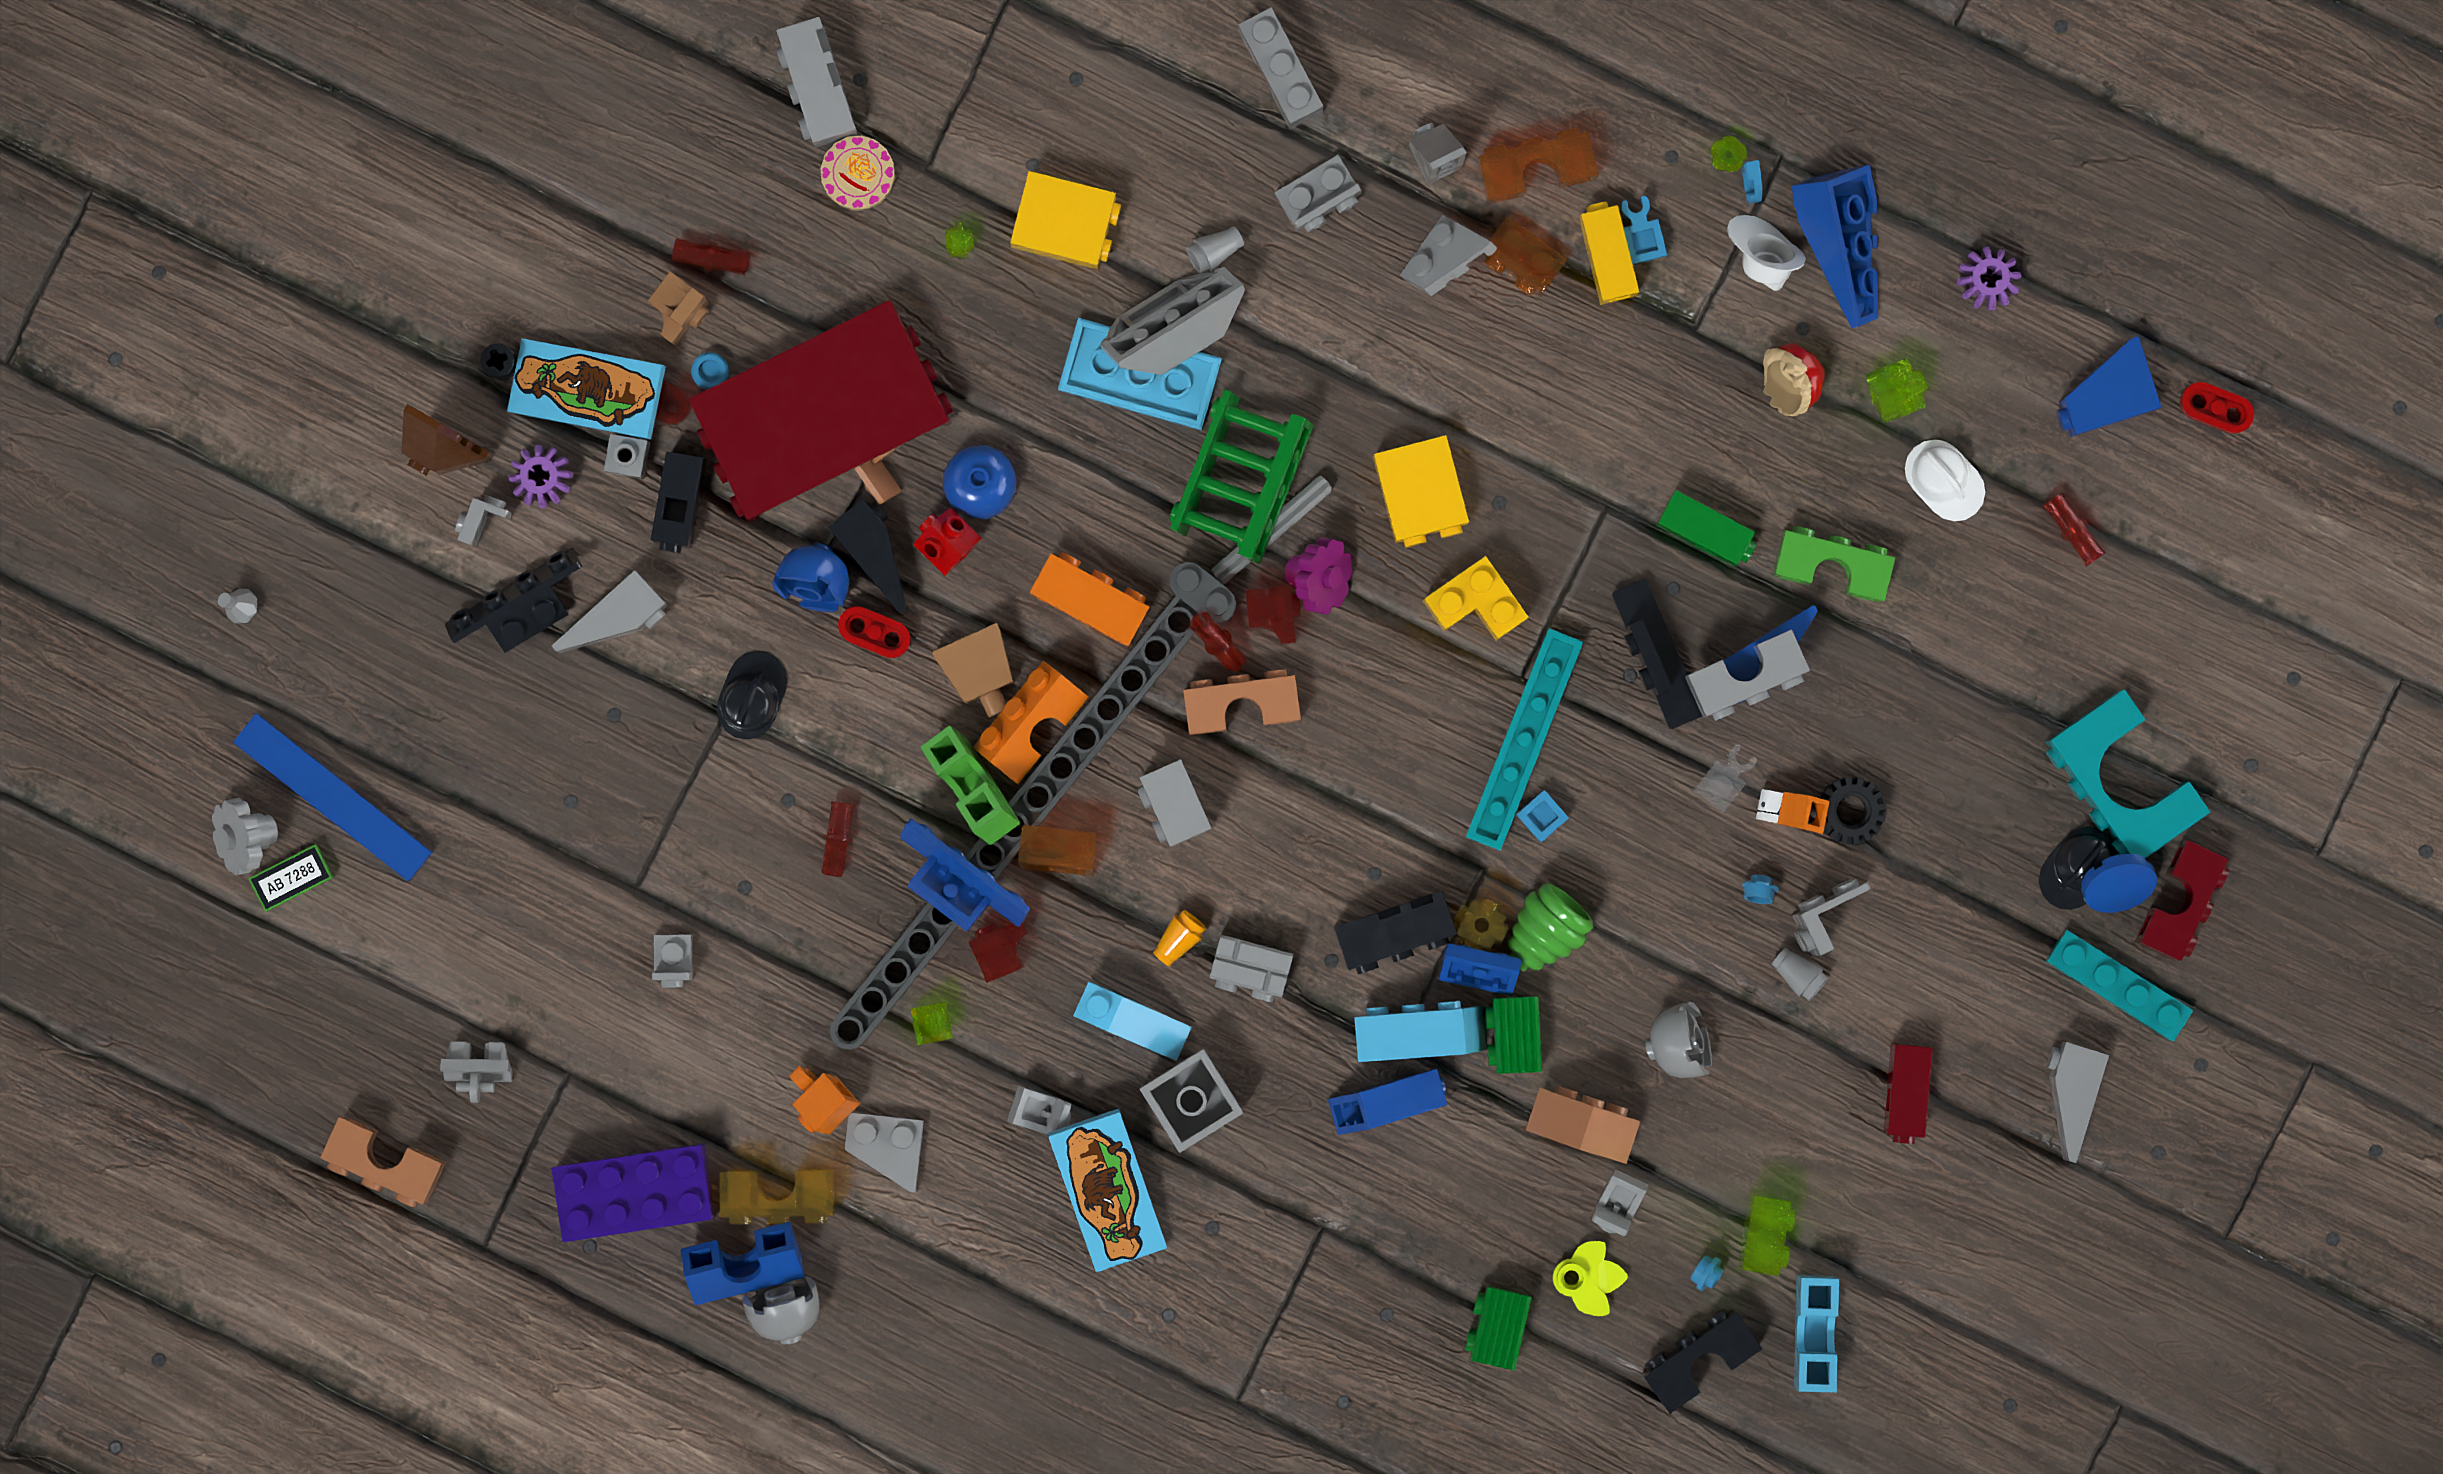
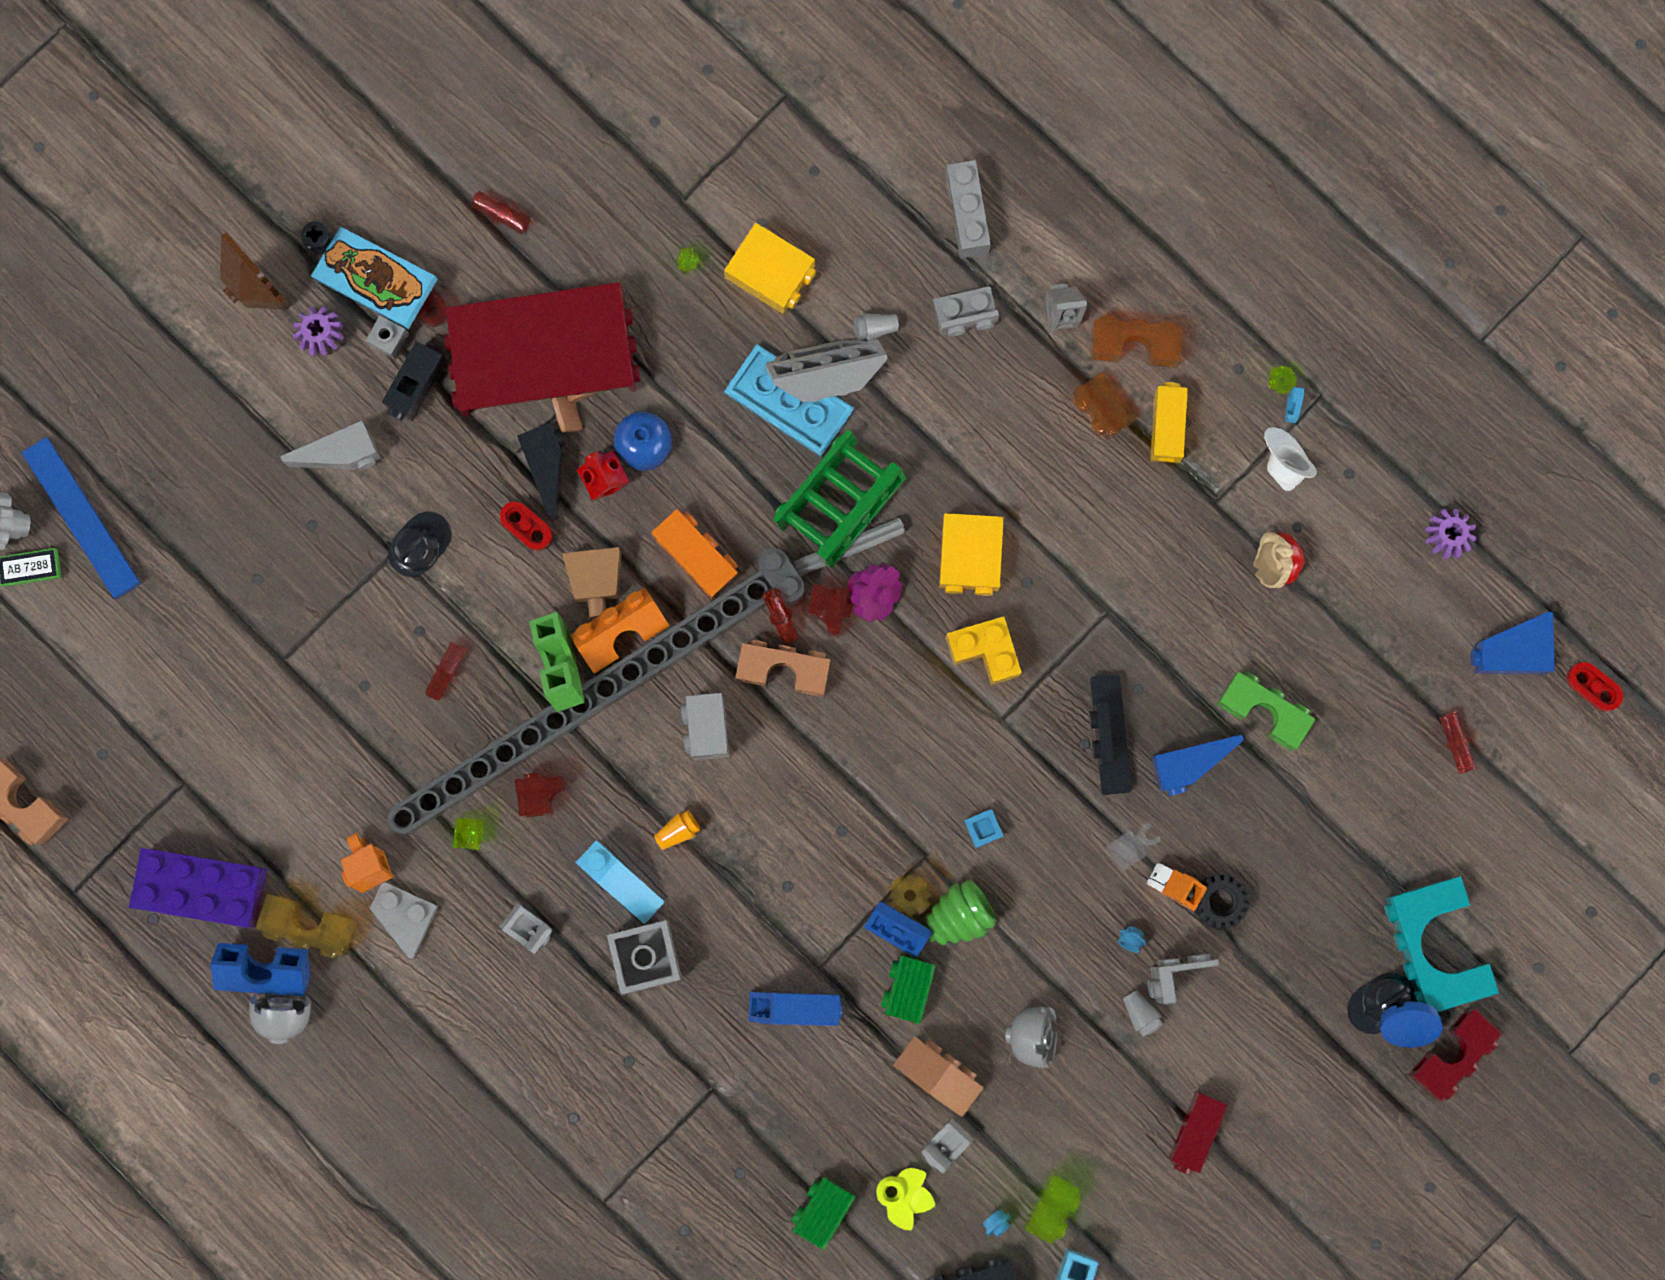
camera: 20 degrees right, 5 degrees down
(239, 605) = (62, 353): light grey rock -> none
(472, 523) = (257, 348): light grey bracket -> none
(476, 1074) = (111, 759): light grey hips -> none
(521, 607) = (270, 423): black bracket -> none
(673, 960) = (291, 722): light grey bracket -> none
(679, 306) = (464, 241): medium nougat brick -> none
(709, 370) = (470, 293): dark azure tile -> none
(814, 576) = (494, 469): blue cylinder -> none
(815, 83) = (620, 108): light grey wedge -> none
(857, 173) = (629, 187): tan tile -> none
(955, 884) = (520, 733): blue bracket -> none
(1057, 850) = (606, 733): clear orange bracket -> none
(1107, 1190) = (557, 1005): tile -> none
(1250, 967) = (724, 870): light grey brick -> none
(1395, 932) = (842, 880): black wedge -> none
(1420, 1032) = (836, 963): medium azure wedge -> none
(1444, 256) = (1045, 385): light grey wing -> none
(1524, 739) = (988, 766): teal plate -> none
(1643, 236) = (1198, 418): dark azure plate -> none
(1707, 529) = (1178, 652): green brick -> none
(1779, 664) = (1202, 770): light grey arch -> none
(1837, 224) = (1348, 459): blue wedge -> none
(1896, 390) = (1355, 594): clear neon green brick -> none
(1945, 480) = (1370, 675): white piece -> none
(2074, 1088) = (1327, 1173): light grey slope -> none
(2119, 985) = (1385, 1104): teal plate -> none

